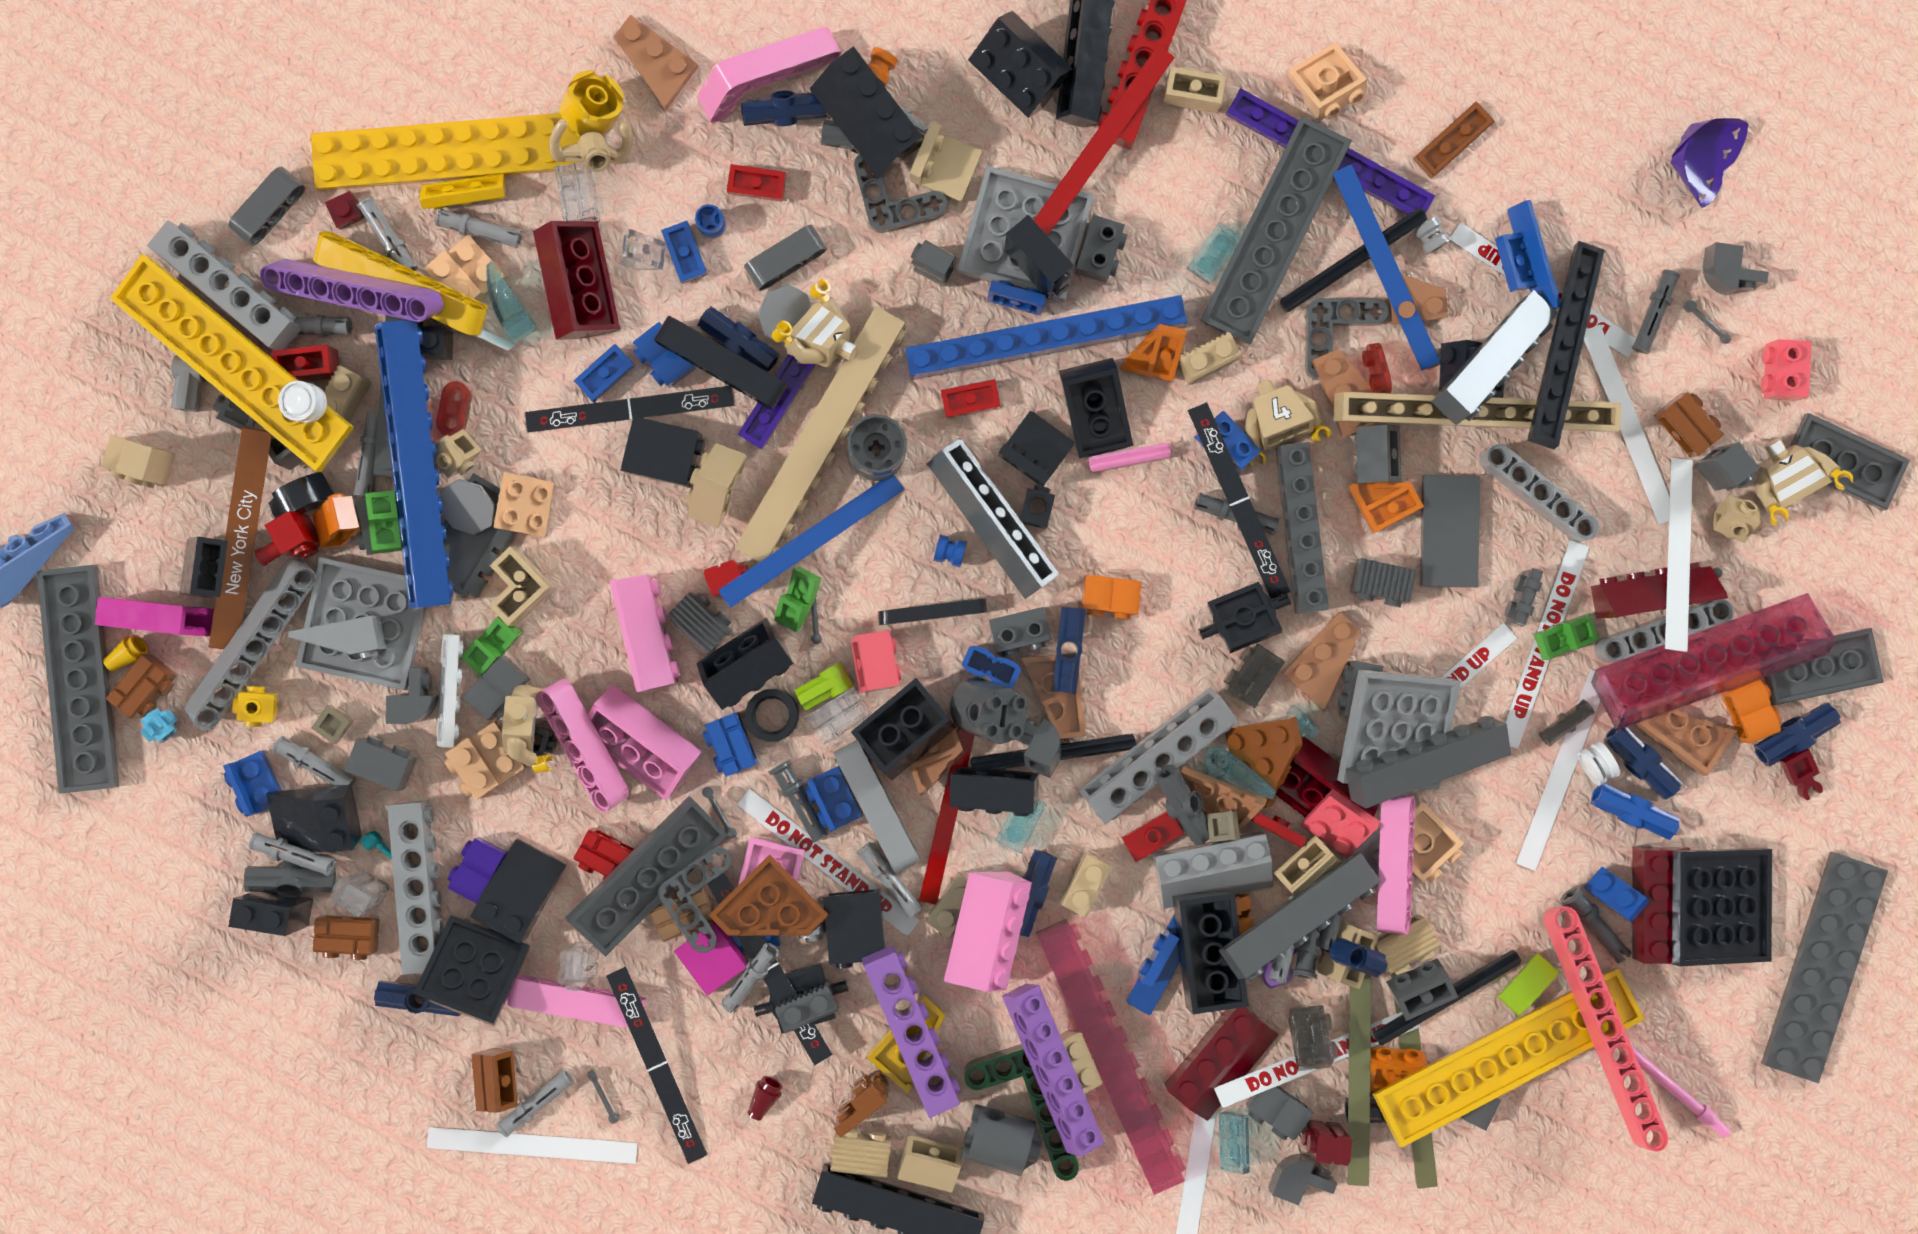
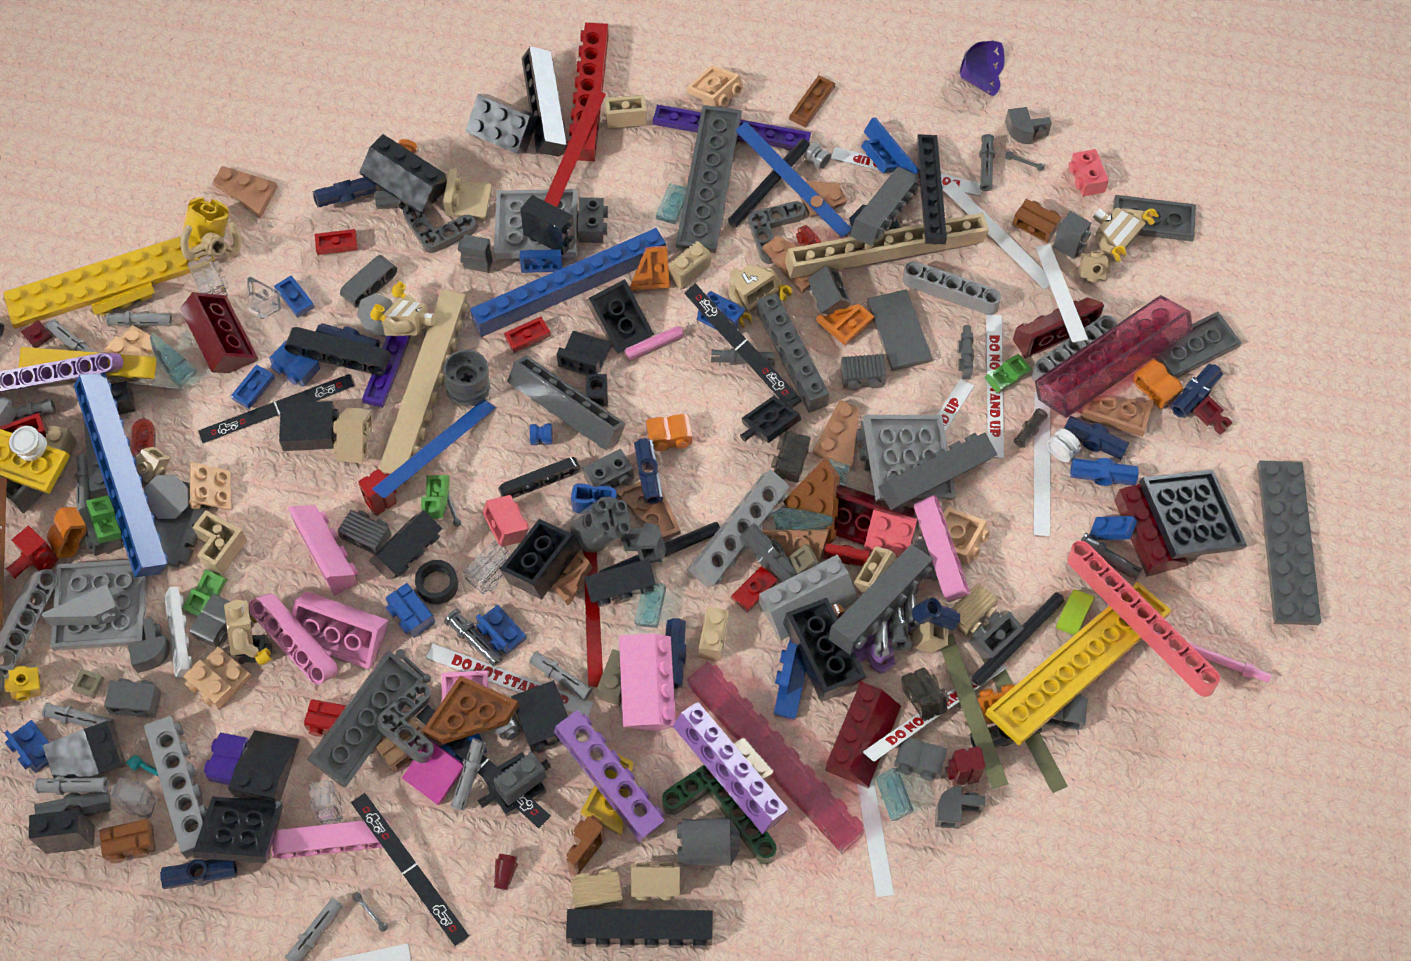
camera: 15 degrees left, 25 degrees down
(301, 495) = (38, 518): black brick -> none
(494, 1080) = (275, 918): dark orange brick -> none
(708, 216) = (308, 272): blue wheel -> none
(764, 66) = (316, 166): bright pink beam -> none
(829, 684) = (473, 547): lime piece -> none
(877, 806) = (536, 624): light grey beam -> none

